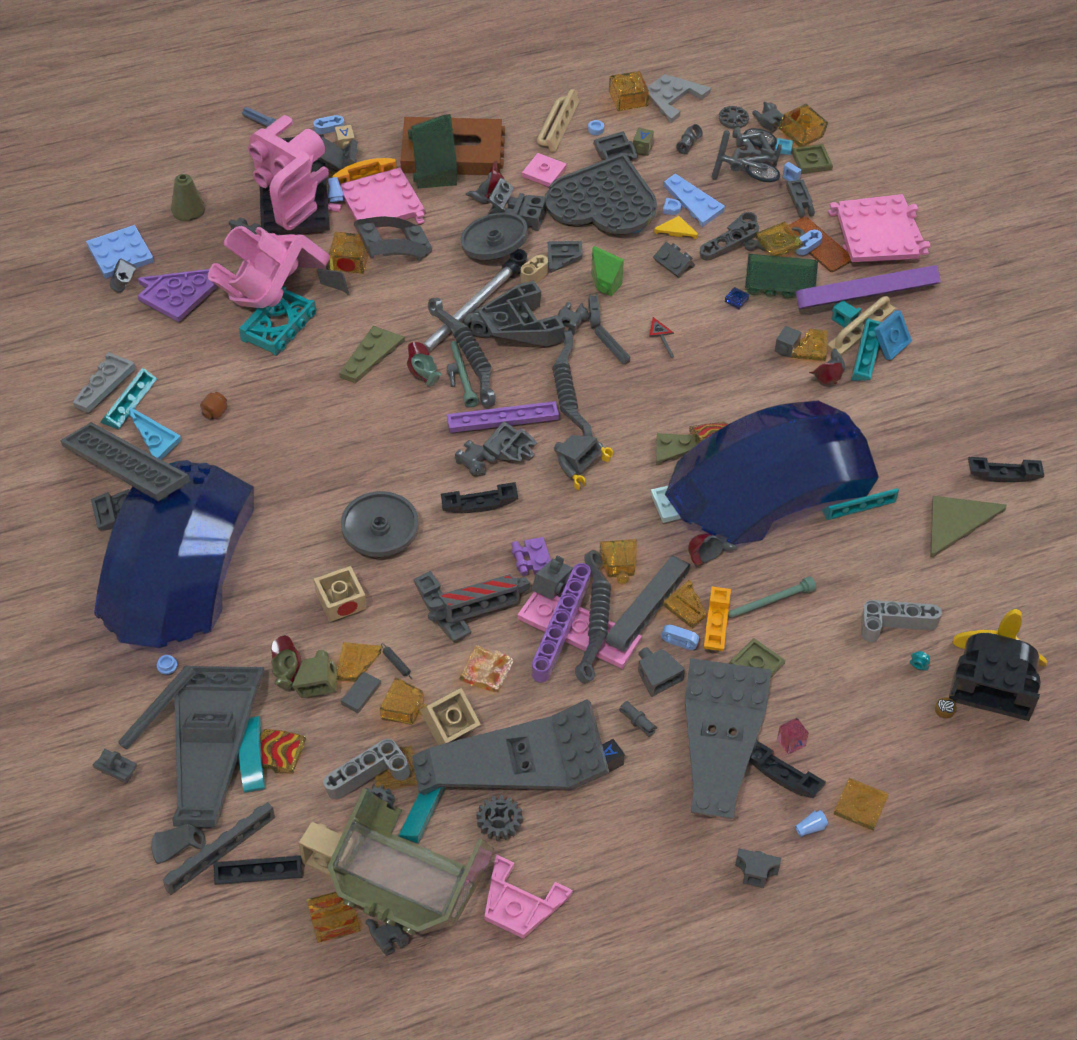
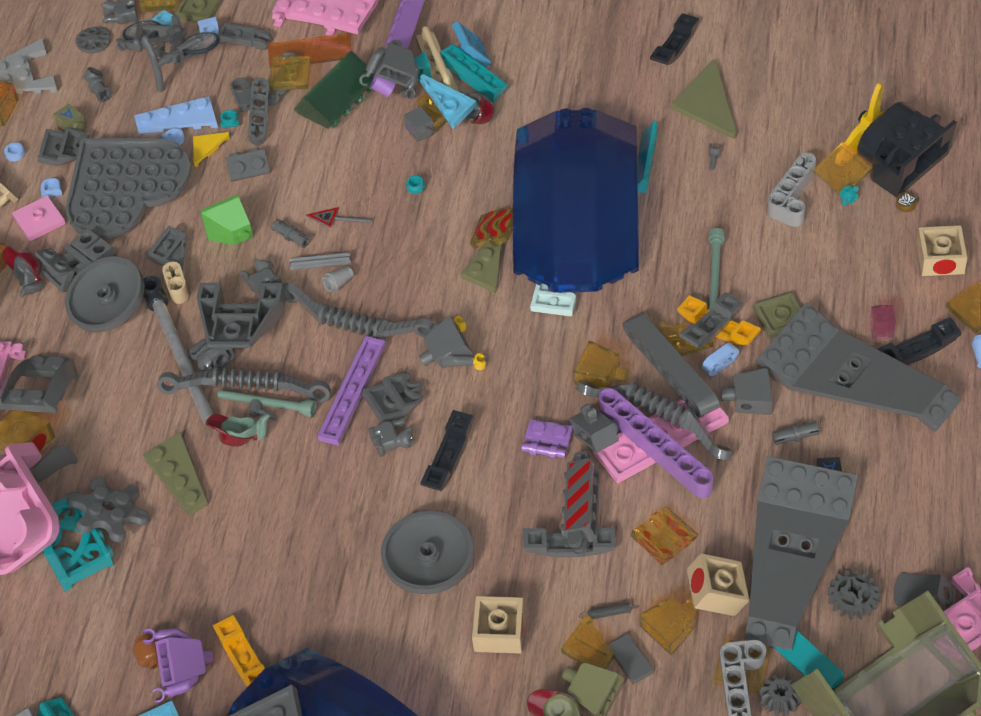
camera: 55 degrees left, 0 degrees up
(209, 422) = (179, 660): none -> medium lavender torso
(245, 454) = (238, 649): none -> light orange slope
(307, 335) = (111, 520): none -> dark grey plate
(534, 865) = (911, 586): none -> dark grey piece
(576, 162) = (51, 187): none -> light blue tile
(594, 311) = (276, 256): dark grey piece -> none
(601, 361) = (336, 279): none -> light grey cone
(626, 315) = (290, 233): none -> dark grey pin
(706, 614) = (713, 322): none -> dark grey slope
(707, 547) = (627, 293): dark grey hair -> none
(712, 228) = (229, 119): none -> teal plate
(726, 367) = (415, 184): none -> teal plate
(736, 298) = (334, 138): clear blue plate -> none
(809, 243) = (310, 51): light blue beam -> none
(820, 347) = (451, 103): none -> medium azure wing
(823, 293) = (395, 65): none -> dark grey torso
(899, 750) = (941, 250): none -> tan brick
(902, 548) = (714, 153): none -> dark grey hand
(944, 643) = (842, 168): none -> clear yellow tile

